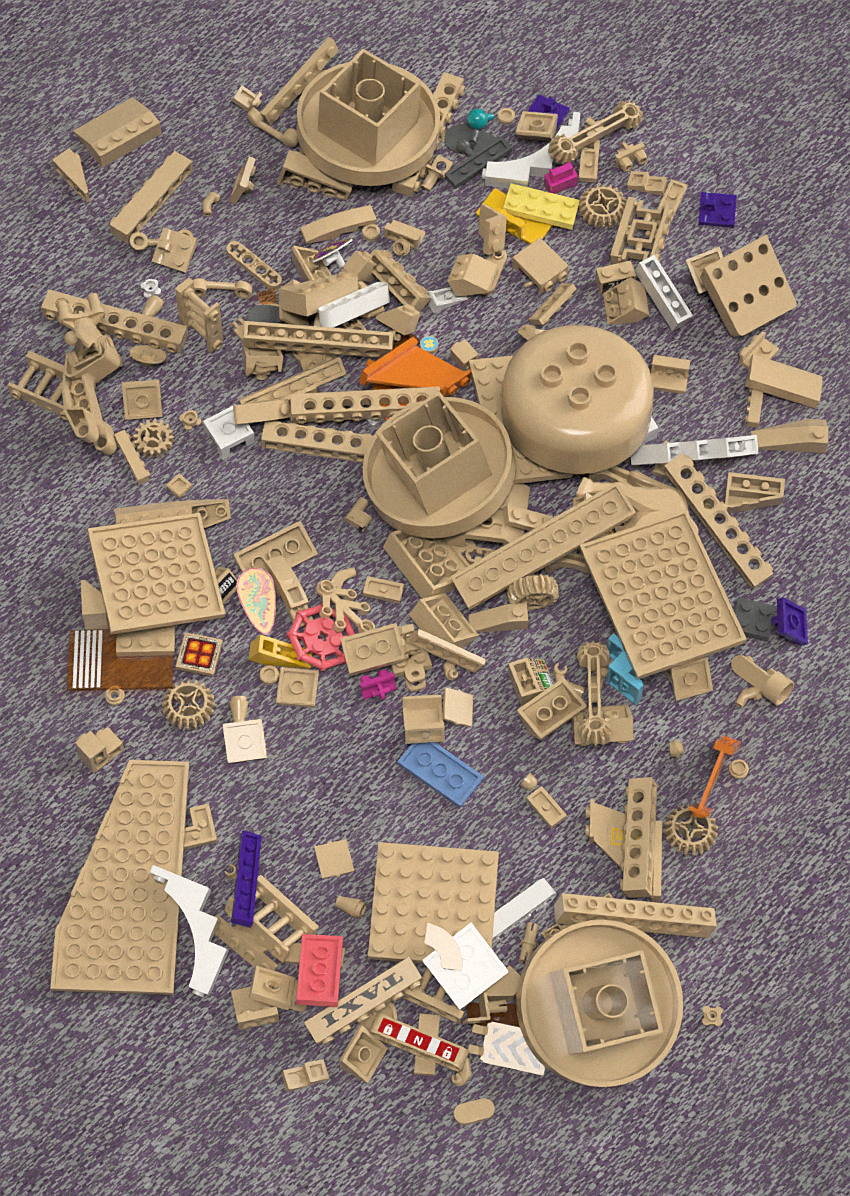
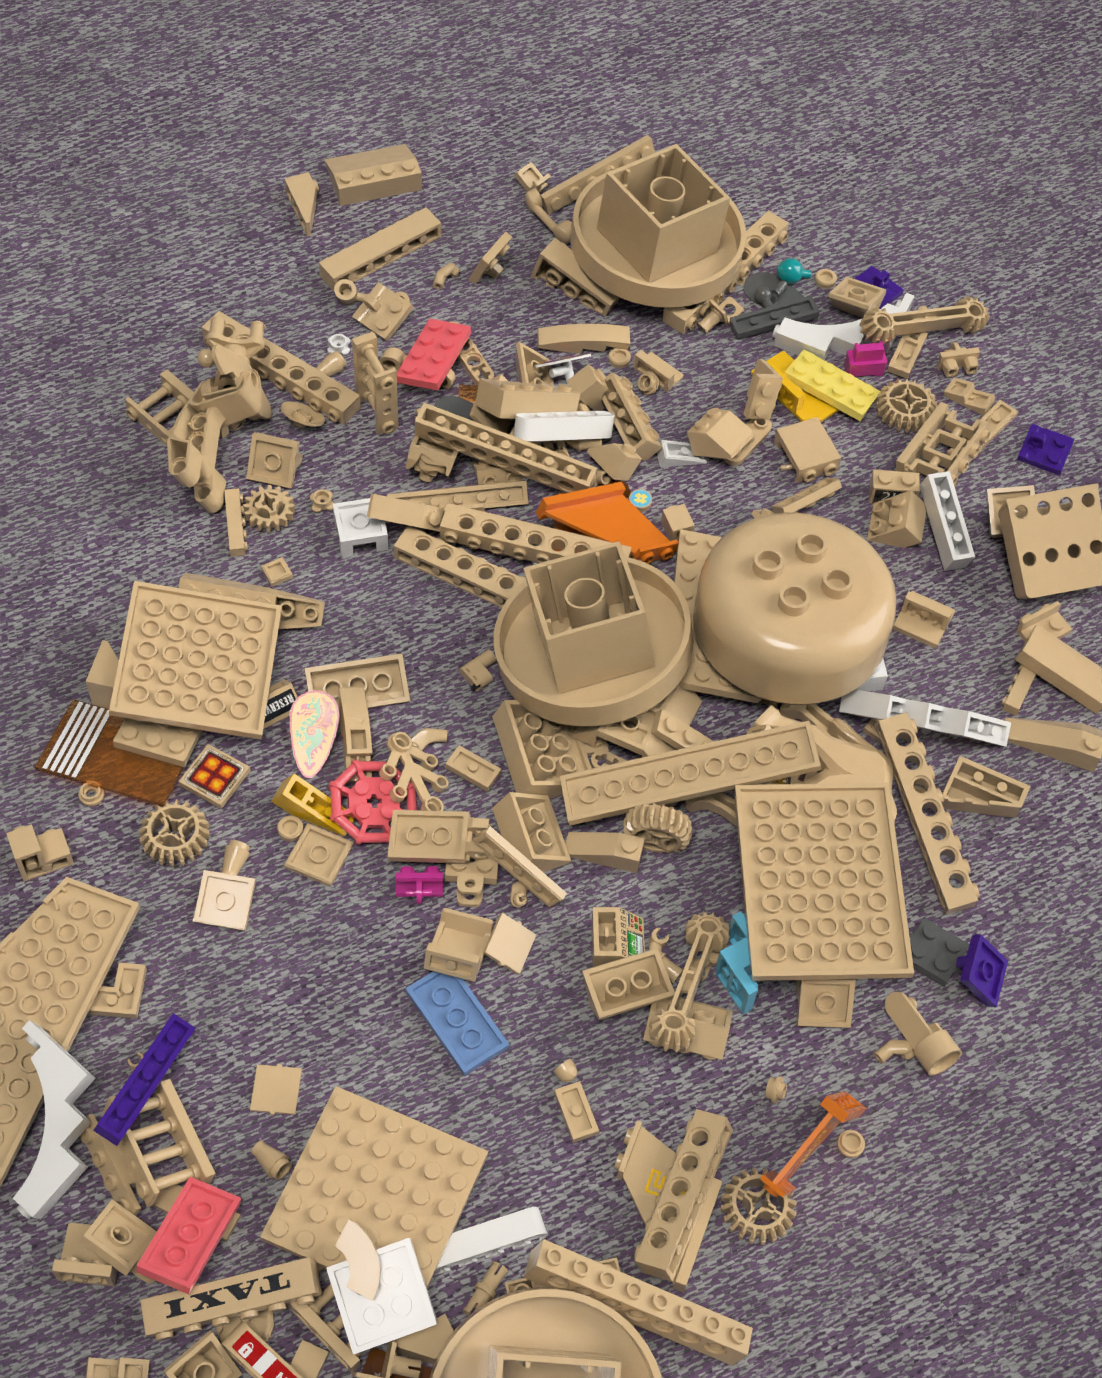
camera: 15 degrees right, 5 degrees down
(229, 274) = (433, 354): none -> coral plate

